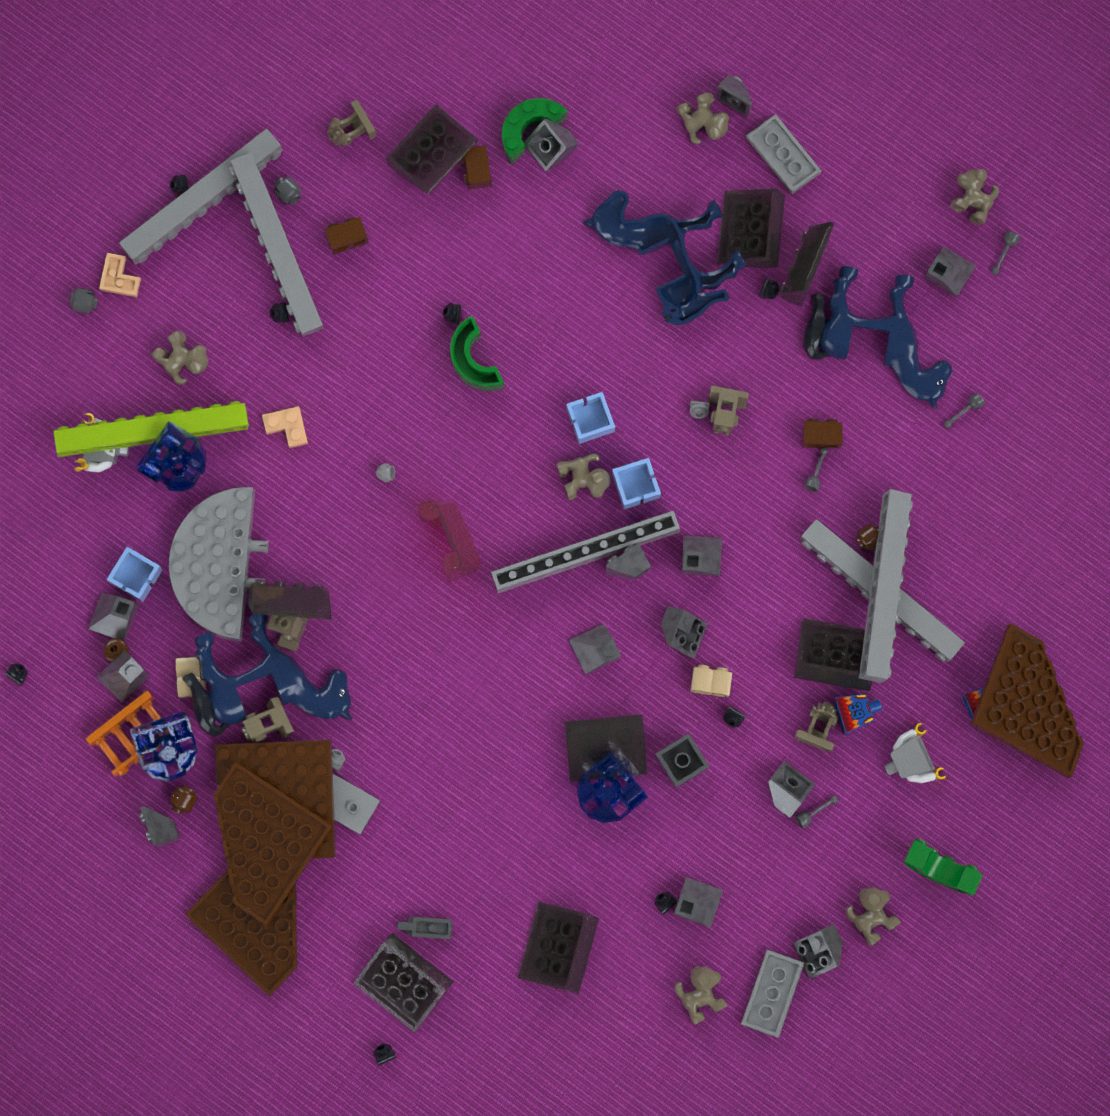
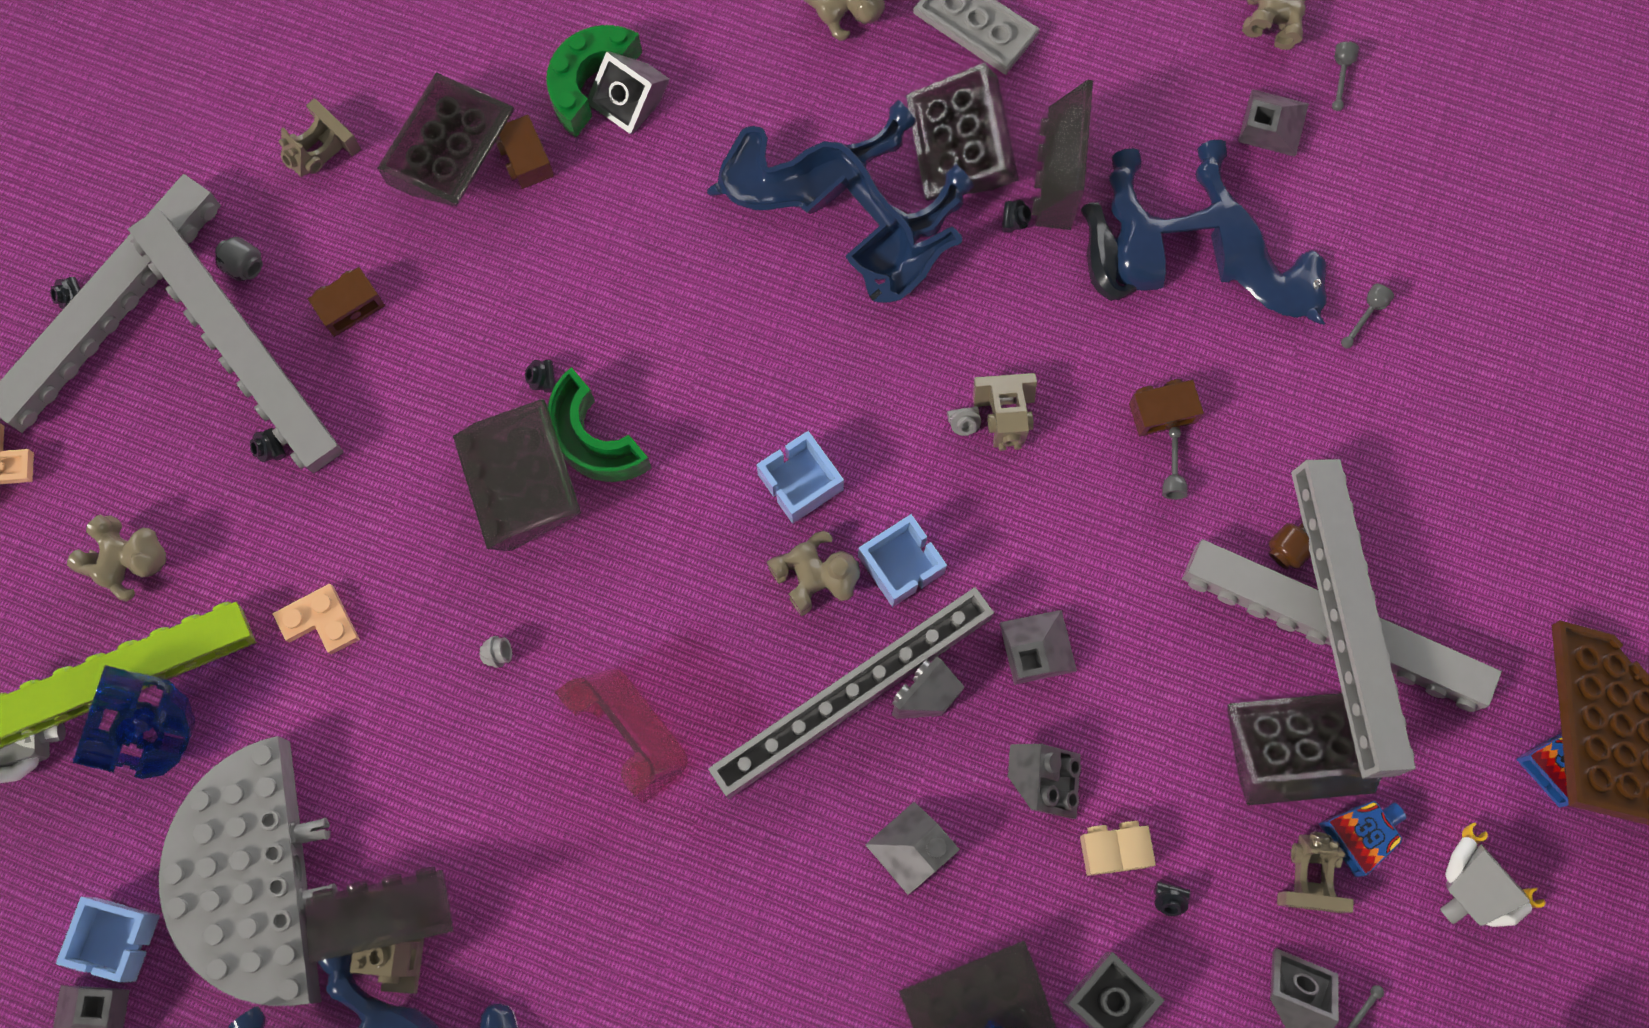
camera: 15 degrees left, 5 degrees down
(424, 372) = (516, 476): none -> clear smoke slope

